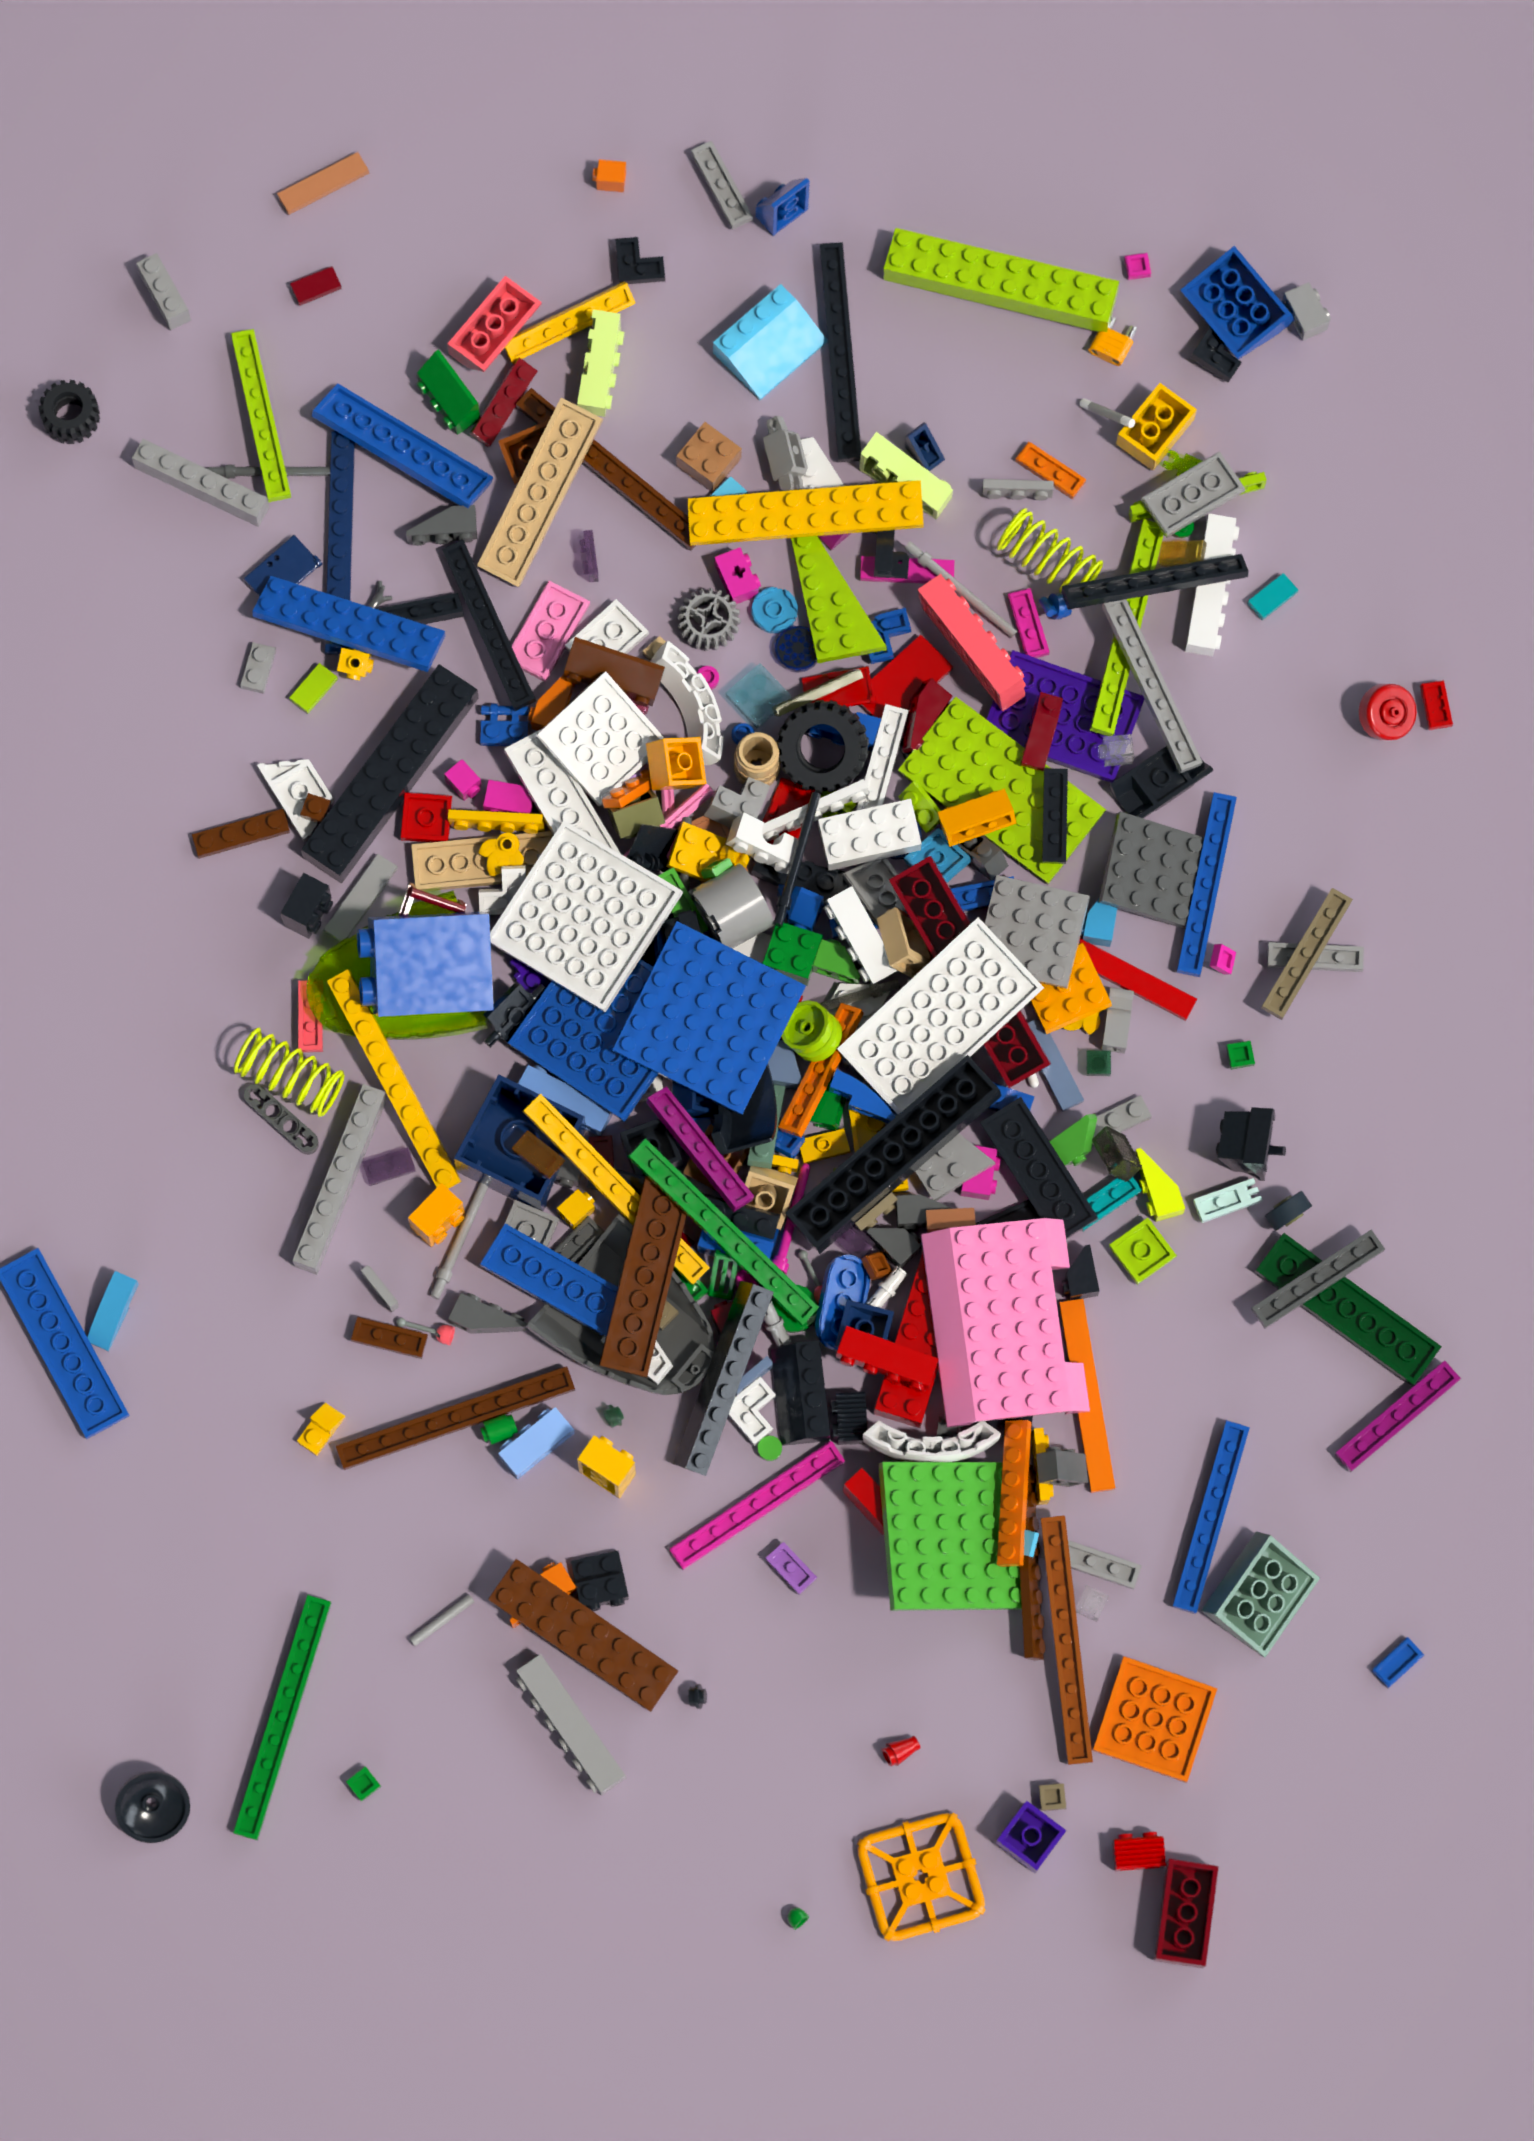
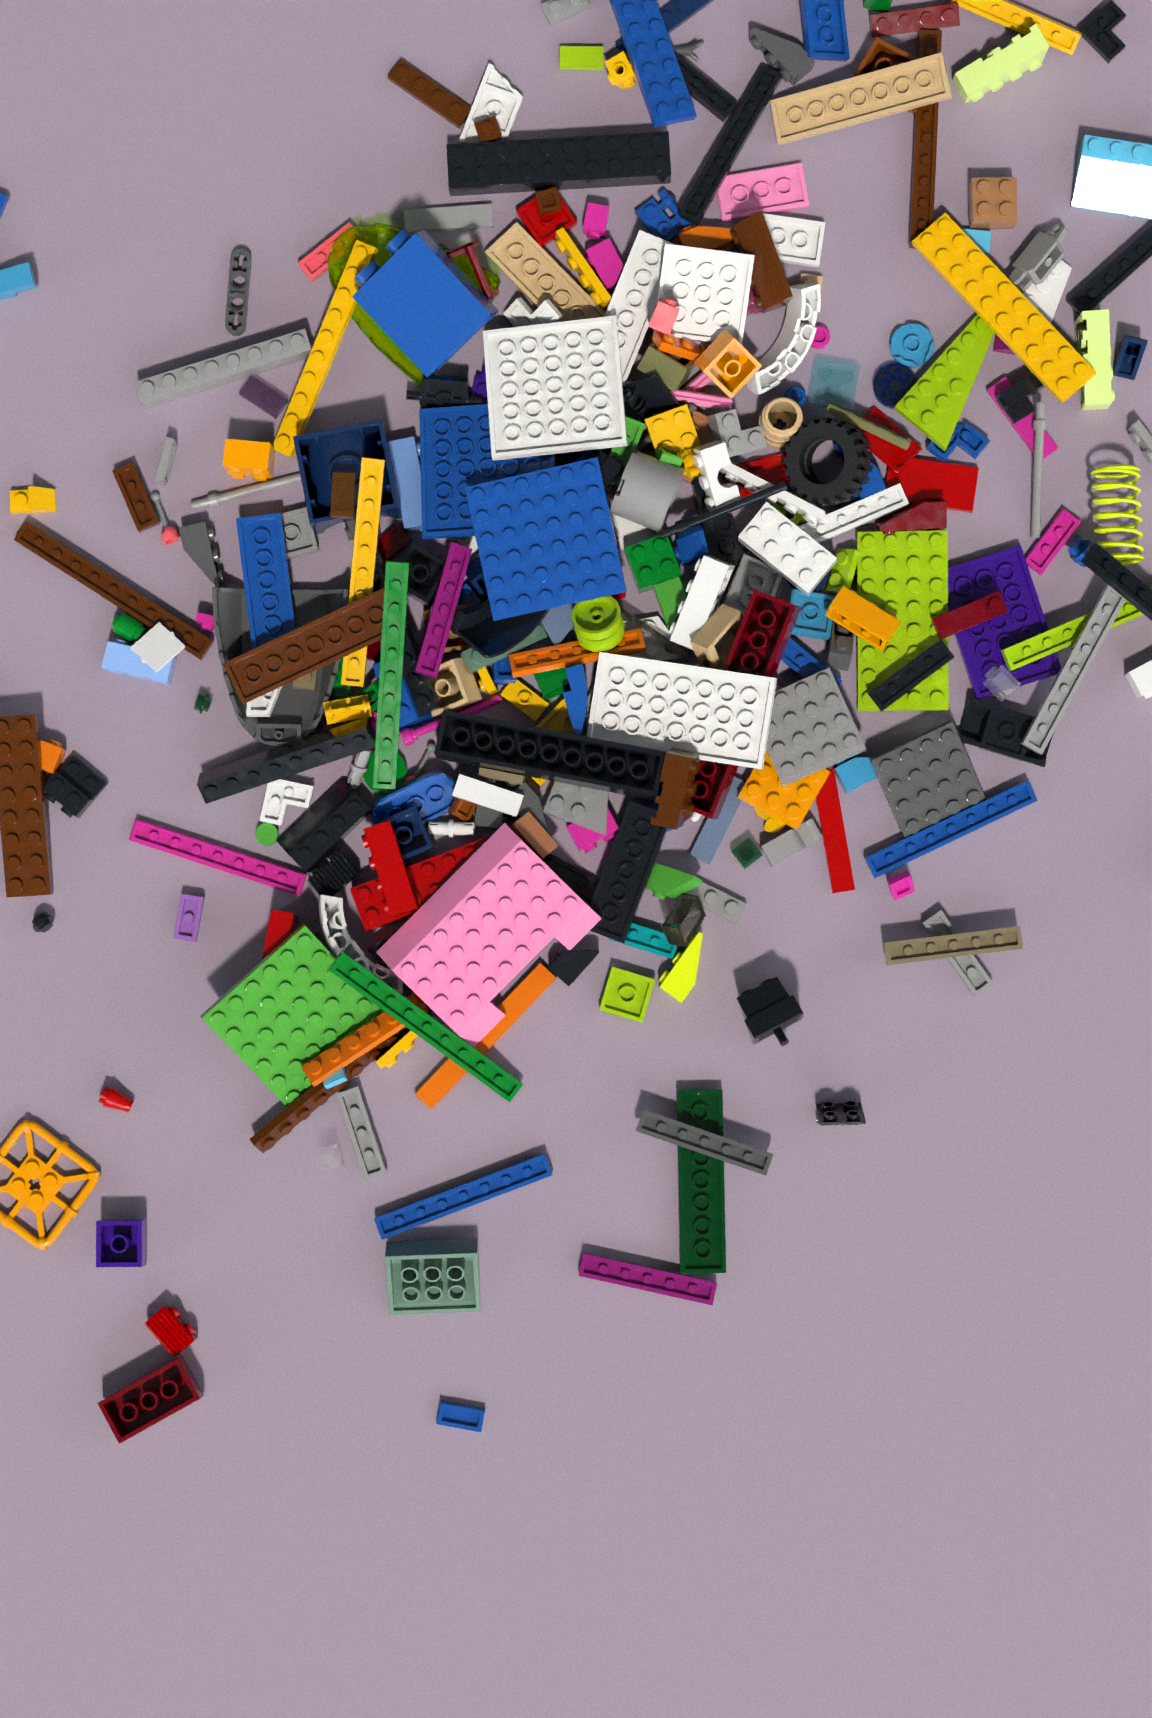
camera: 60 degrees right, 10 degrees up
(306, 906) = (407, 182): black brick -> none
(321, 1096) = (262, 234): neon yellow piece -> none
(417, 804) = (548, 201): none -> reddish brown plate
(500, 856) = (557, 292): yellow plate -> none
(538, 1414) = (157, 647): none -> white piece
(547, 1358) = (206, 621): none -> dark pink plate
(576, 1208) = (335, 556): yellow brick -> none
(580, 1240) = (312, 577): dark grey tile -> none
(587, 546) = (837, 183): clear purple plate -> none
(597, 780) = (664, 315): none -> coral brick
(607, 1465) = (154, 726): yellow brick -> none
(714, 601) = (855, 306): light grey gear -> none
(719, 1293) = (347, 709): none -> yellow hinge
(732, 563) = (919, 284): dark pink brick -> none
(757, 1371) = (314, 781): sand blue tile -> none
(885, 1233) = (488, 795): none -> white tile
(972, 642) = (1001, 510): coral brick -> none
(1004, 1069) = (676, 788): none -> reddish brown wedge
(1044, 1431) = (425, 1026): none -> green plate
(1052, 1797) = (165, 1236): dark tan plate -> none
(1062, 1467) = (411, 1059): dark grey brick -> none
(1066, 1640) = (287, 1159): dark orange plate -> none
(1155, 1719) = (279, 1268): orange plate -> none
(1226, 1200) = (714, 1028): light aqua hinge -> none
(1240, 1055) = (836, 954): green plate -> none
(1288, 1210) = (740, 1080): black wheel -> none
(1382, 1147) = (840, 1113): none -> black hinge

